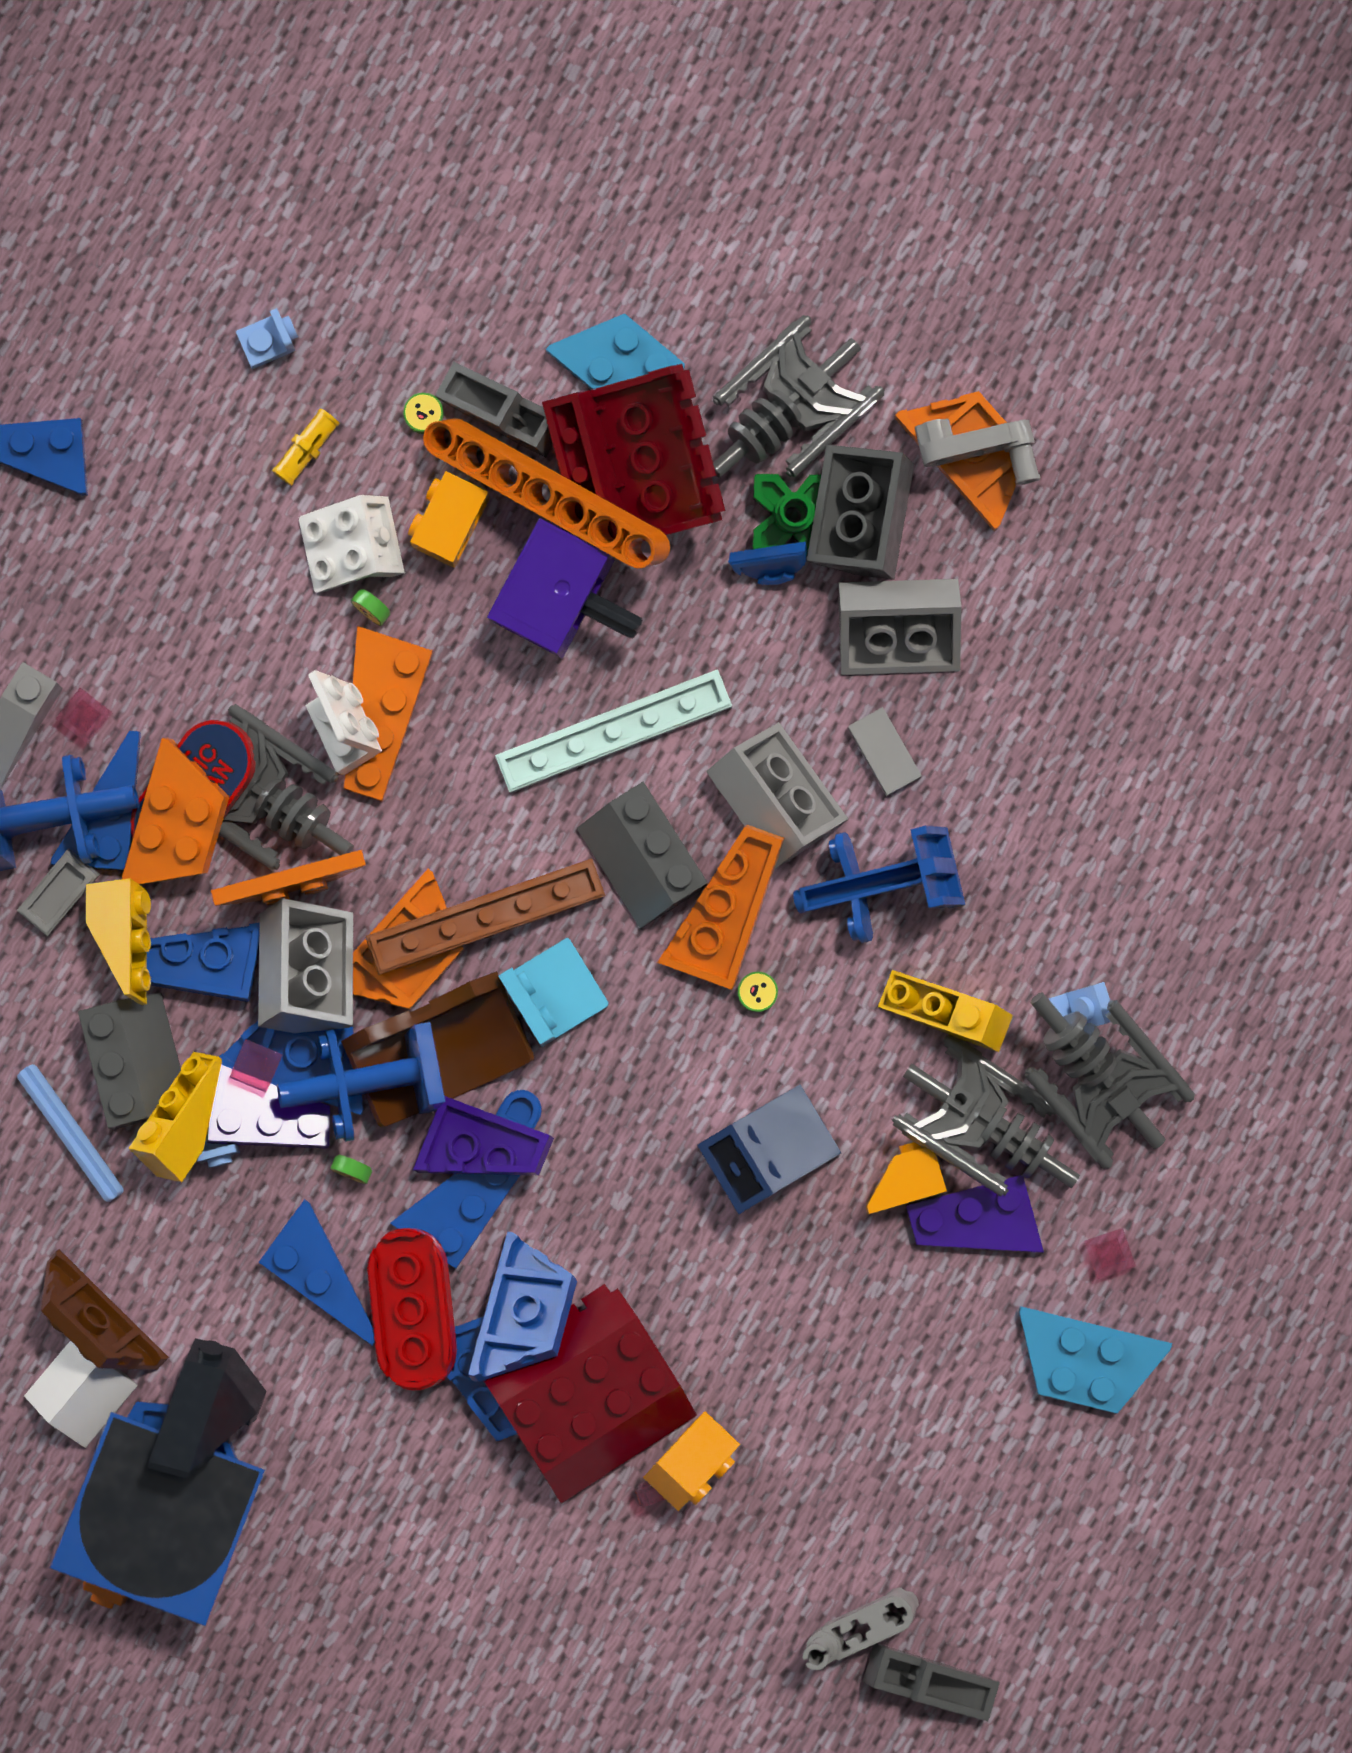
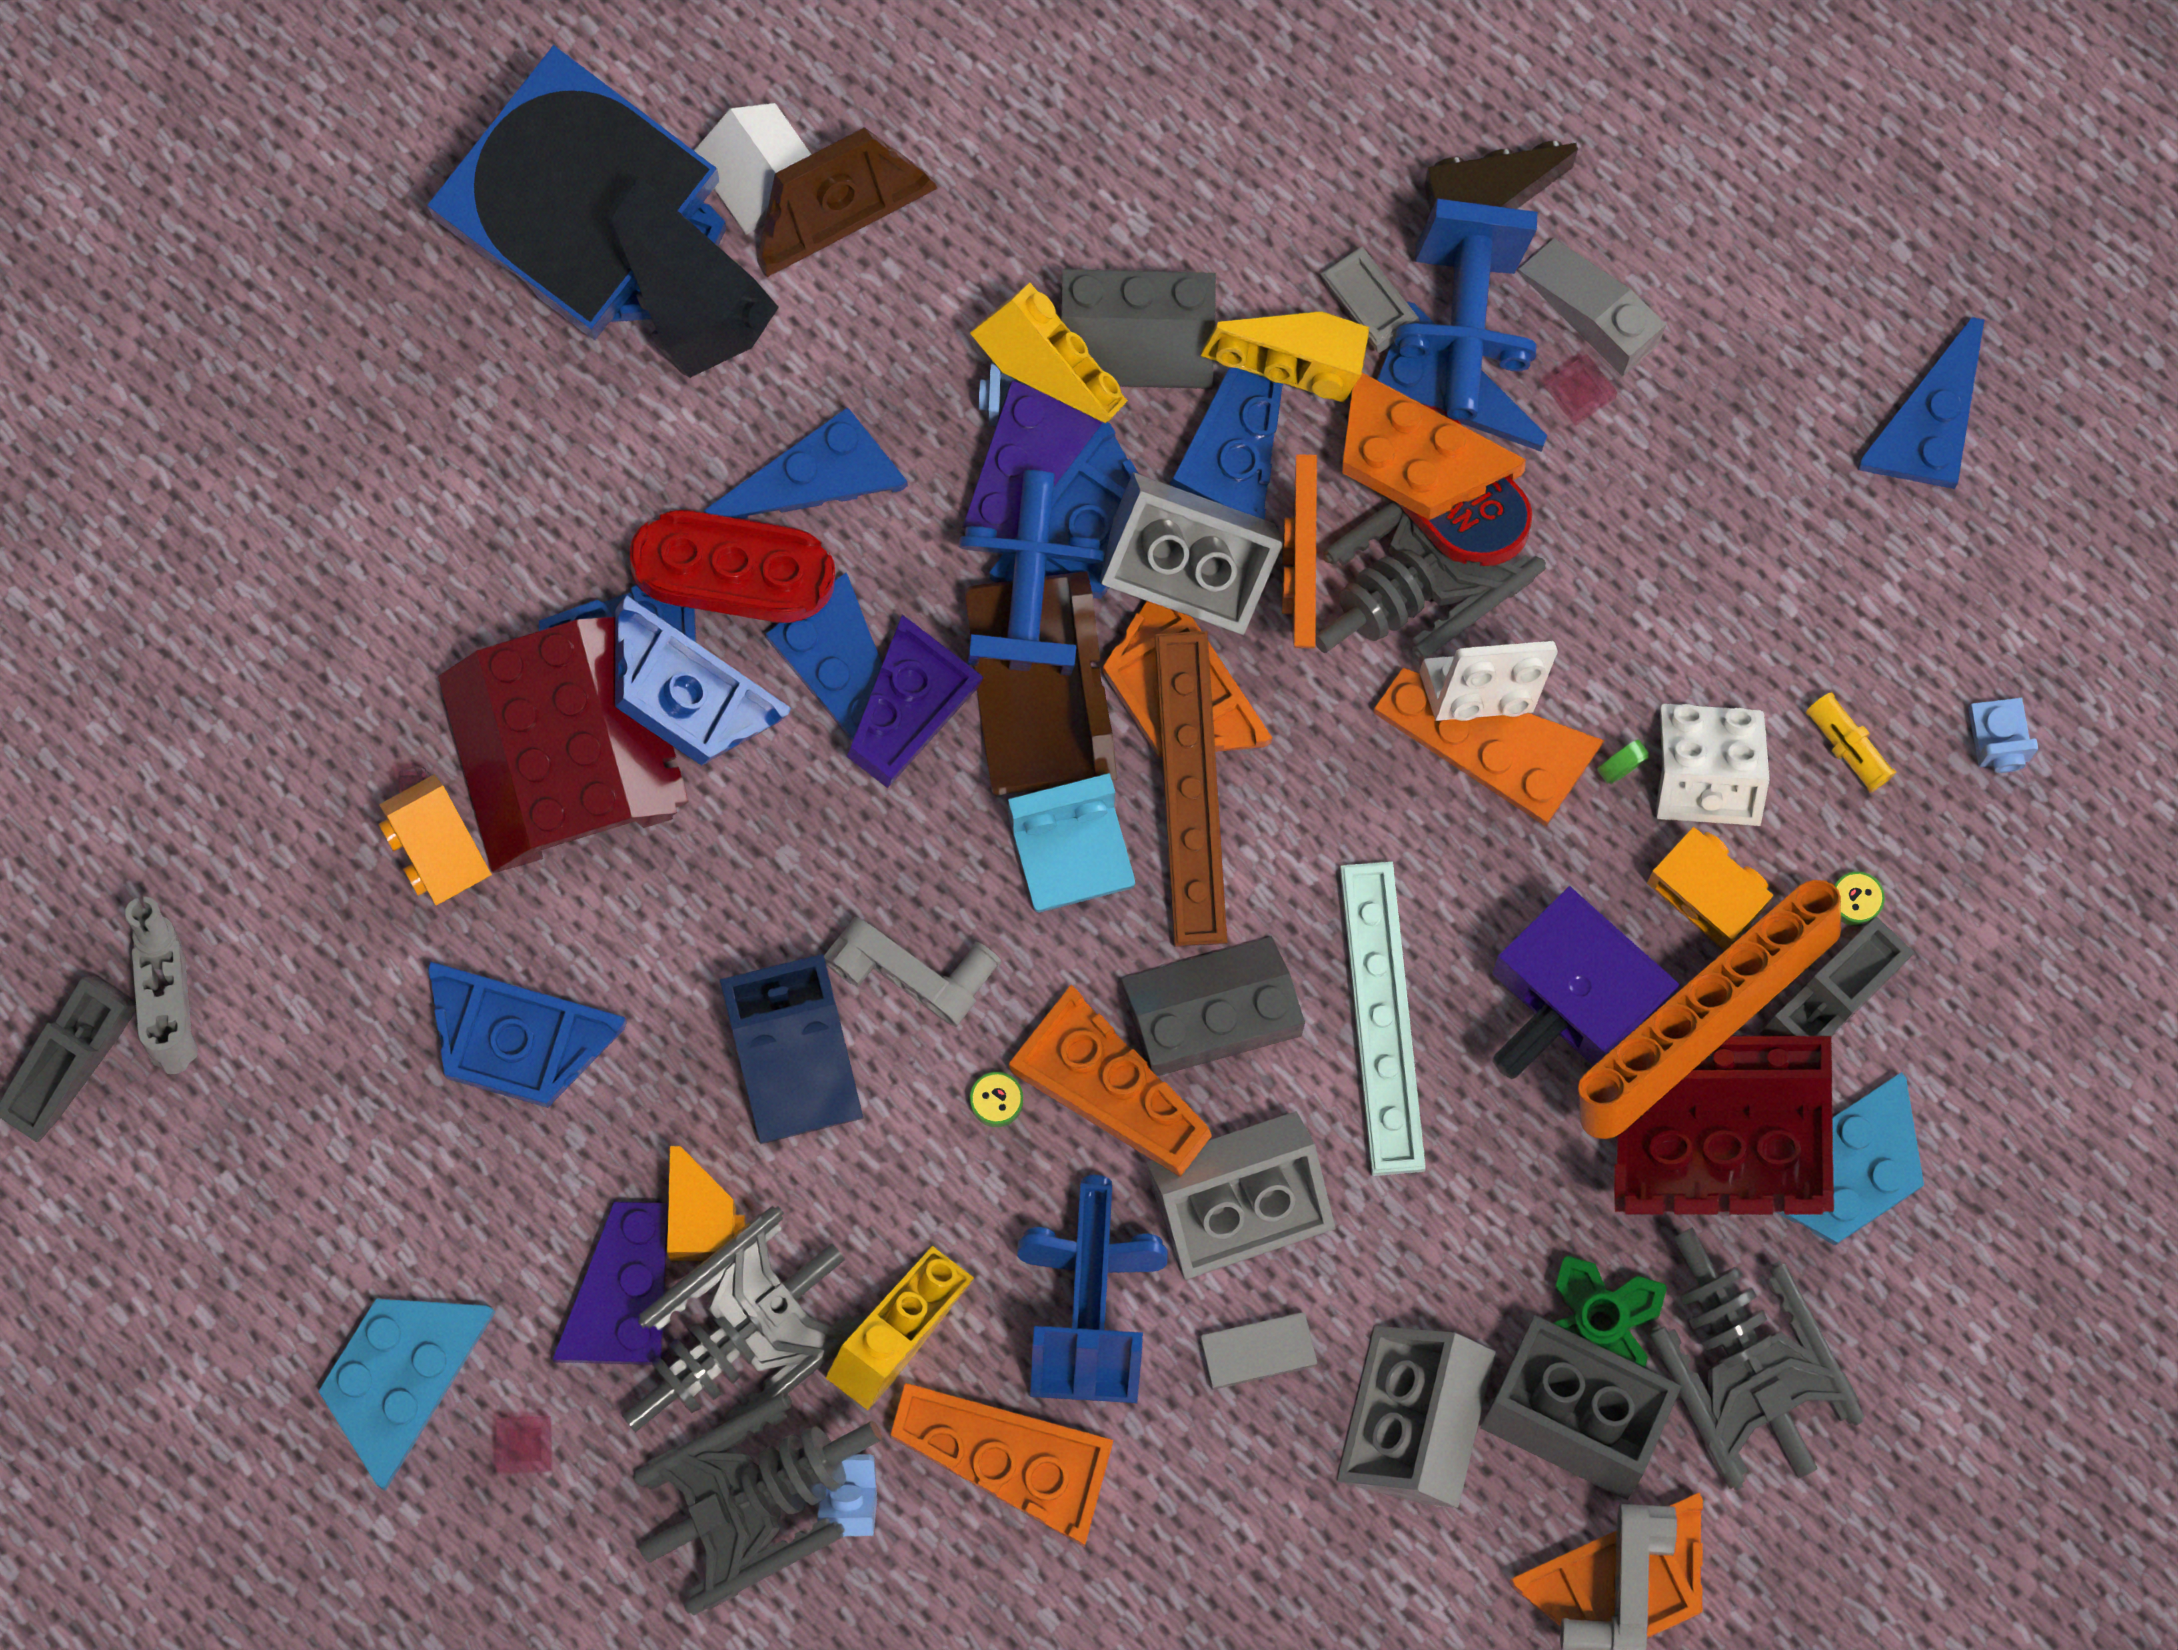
camera: 100 degrees right, 10 degrees down
(70, 1133) = (1072, 237): light blue axle -> none
(255, 1065) = (1086, 463): clear pink tile -> none
(351, 1169) = (926, 544): bright green tile -> none
(521, 1108) = (936, 768): blue tile -> none
(677, 1122) = (950, 998): none -> light grey beam
(770, 564) = (1543, 1274): blue tile -> none
(817, 1357) = (514, 1036): none -> blue wing
(1015, 894) = (1016, 1458): none -> orange wing

